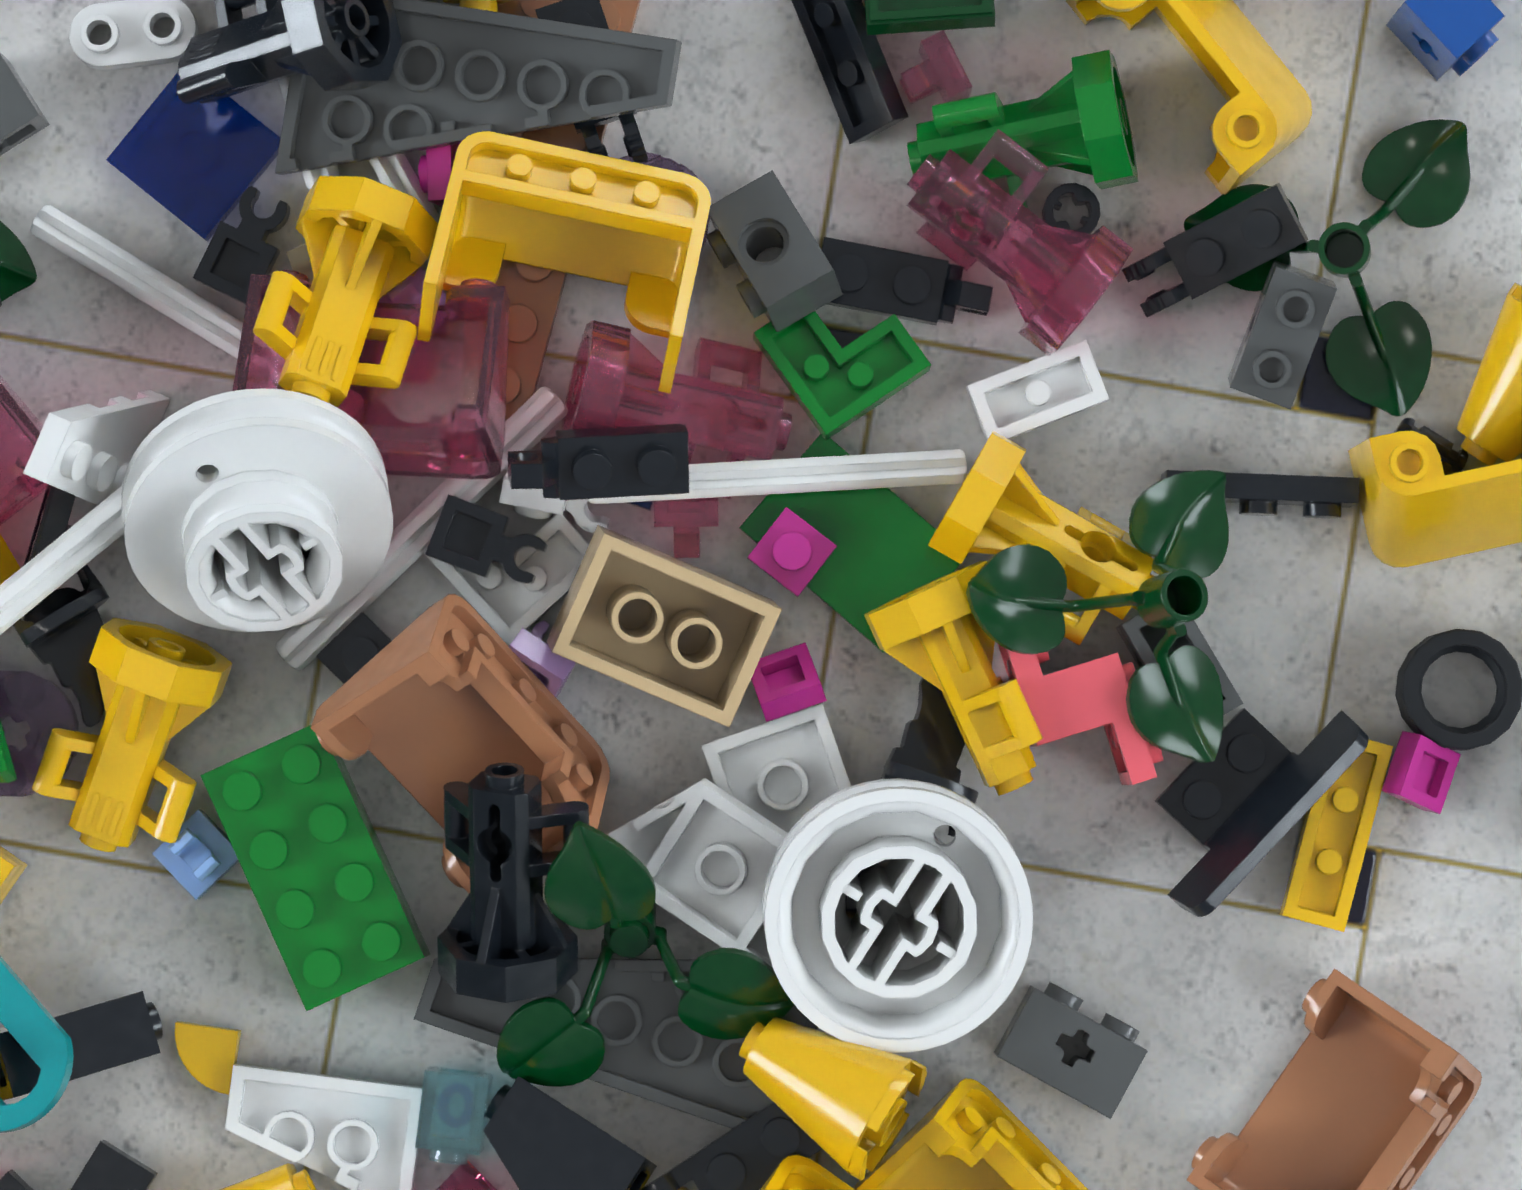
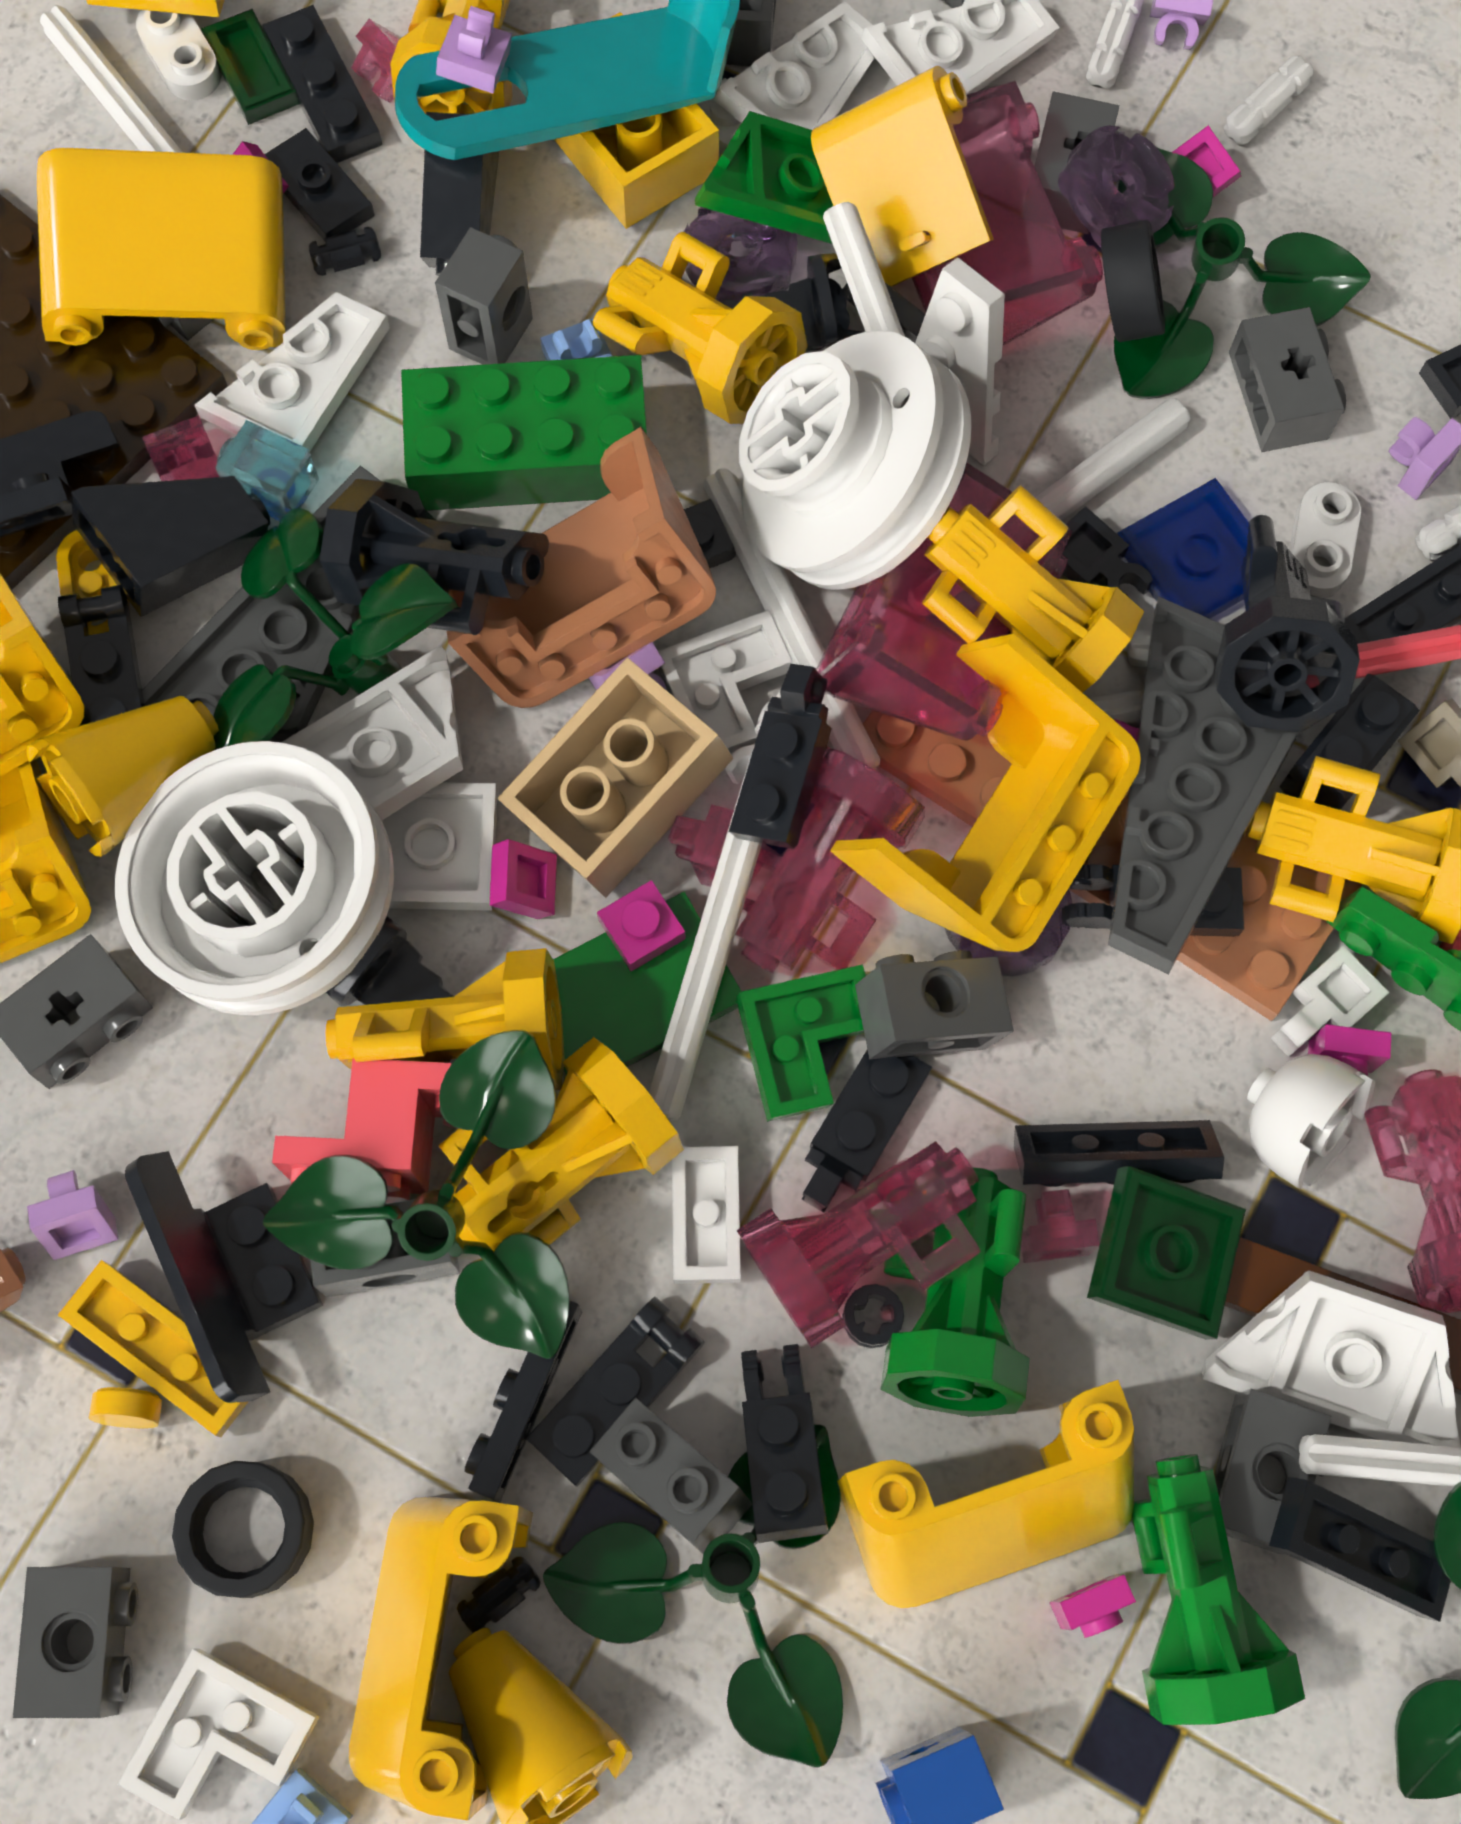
camera: 105 degrees right, 15 degrees down
(164, 1147) = (344, 251): none -> black piece
(186, 962) = (484, 298): none -> dark grey brick
(208, 1053) = (408, 309): yellow tile -> none
(475, 538) = (758, 647): black plate -> none
(1222, 417) = (610, 1387): none -> black plate
(1253, 960) = (71, 1218): none -> lavender tile
(1398, 837) = (125, 1408): none -> yellow tile
(1421, 772) = (176, 1453): dark pink plate -> none

